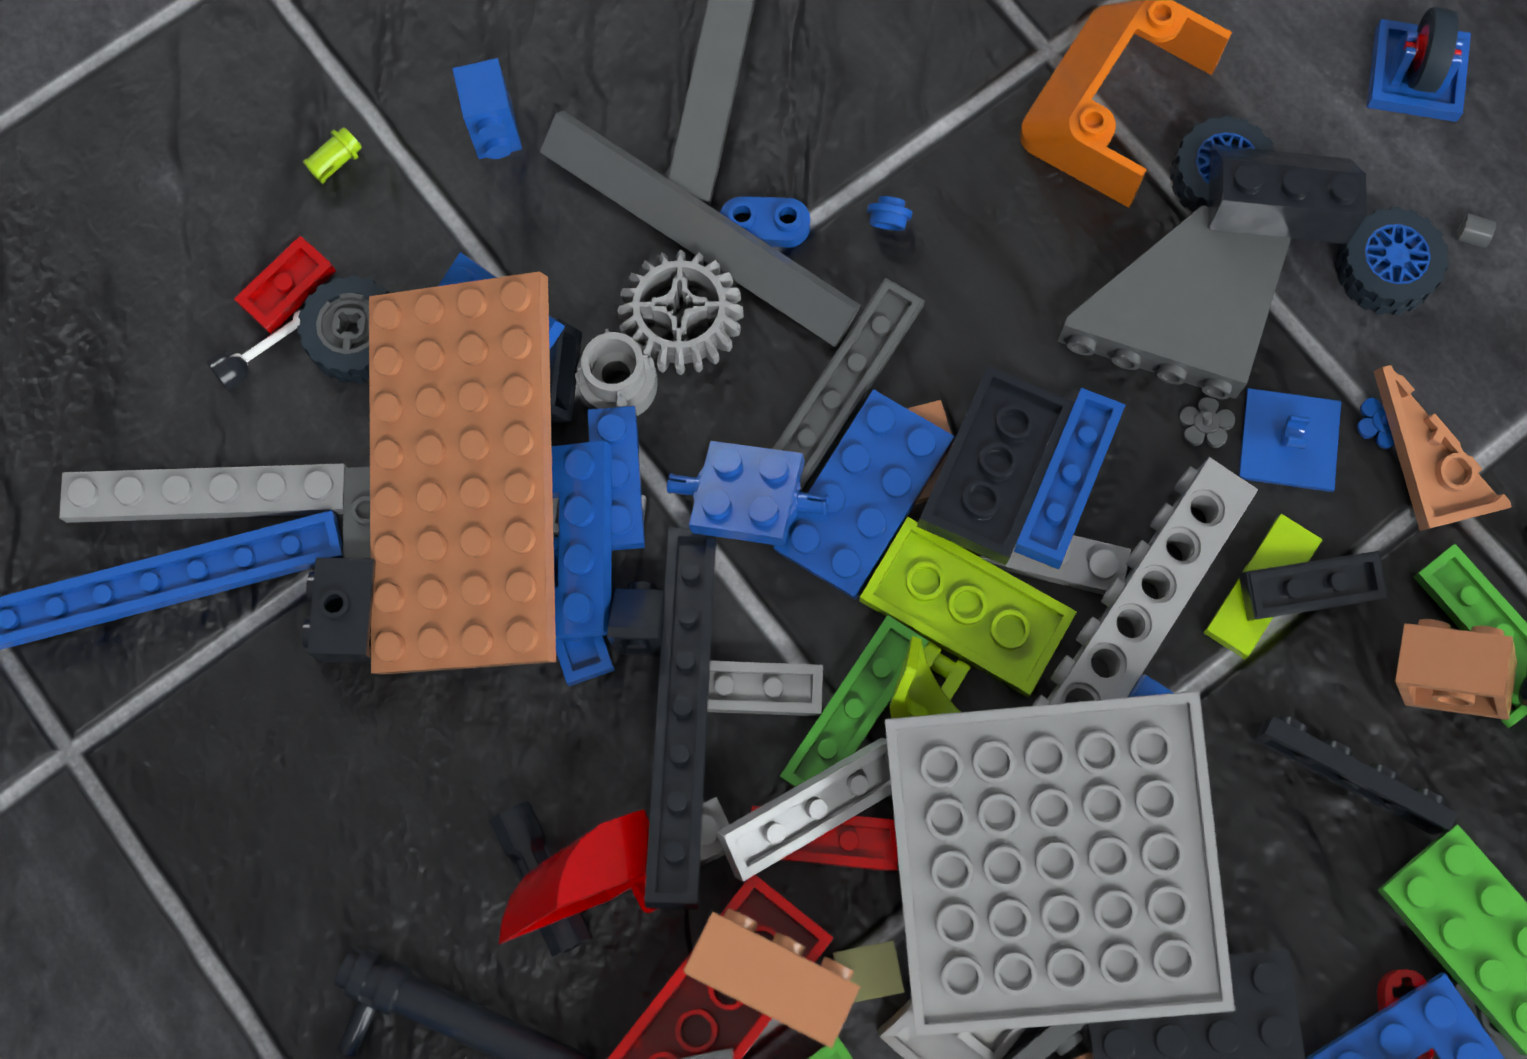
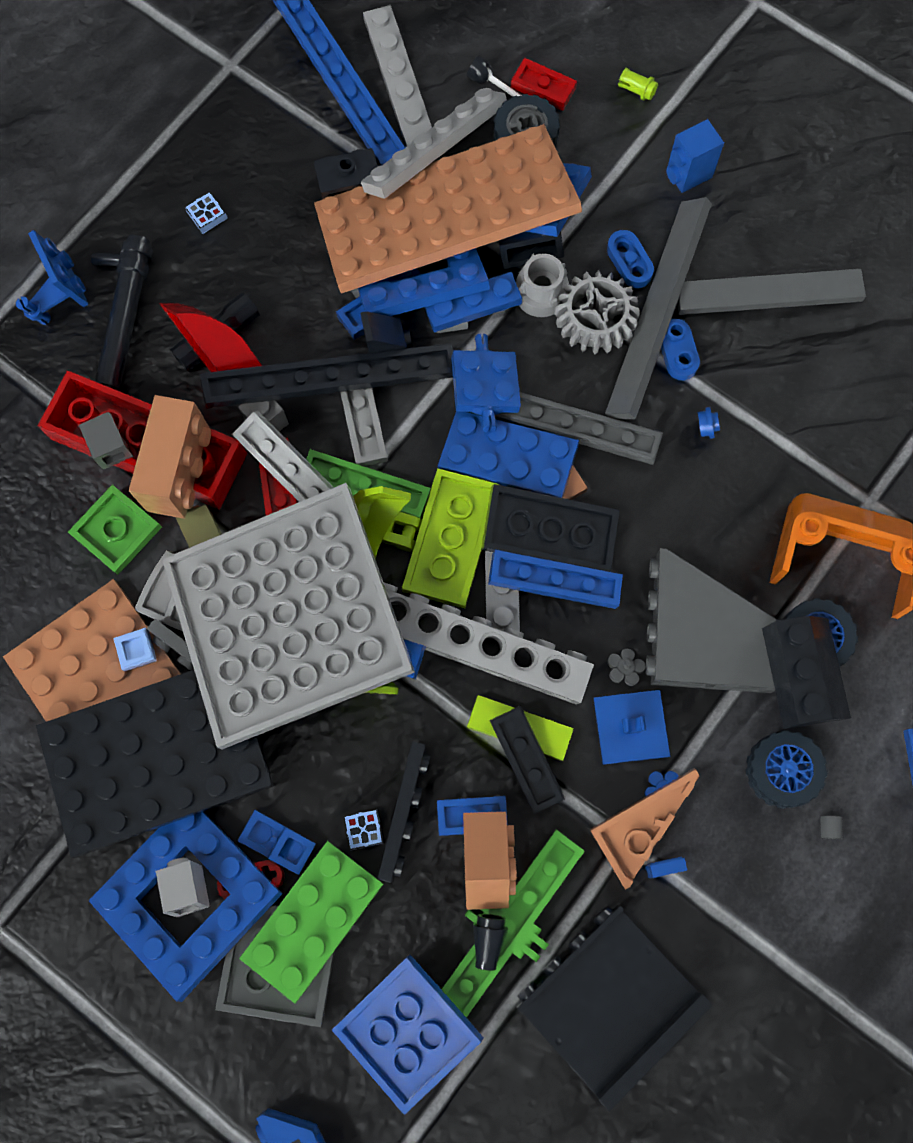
camera: 75 degrees right, 0 degrees up
(325, 849) = (206, 212): none -> tile
(341, 465) = (433, 143): none -> light grey plate
(609, 241) = (632, 260): none -> blue plate
(1356, 968) = (276, 842): none -> blue slope
(1362, 838) = (363, 829): none -> tile
(1372, 693) = (451, 812): none -> blue plate
(1494, 446) = (666, 867): none -> blue tile

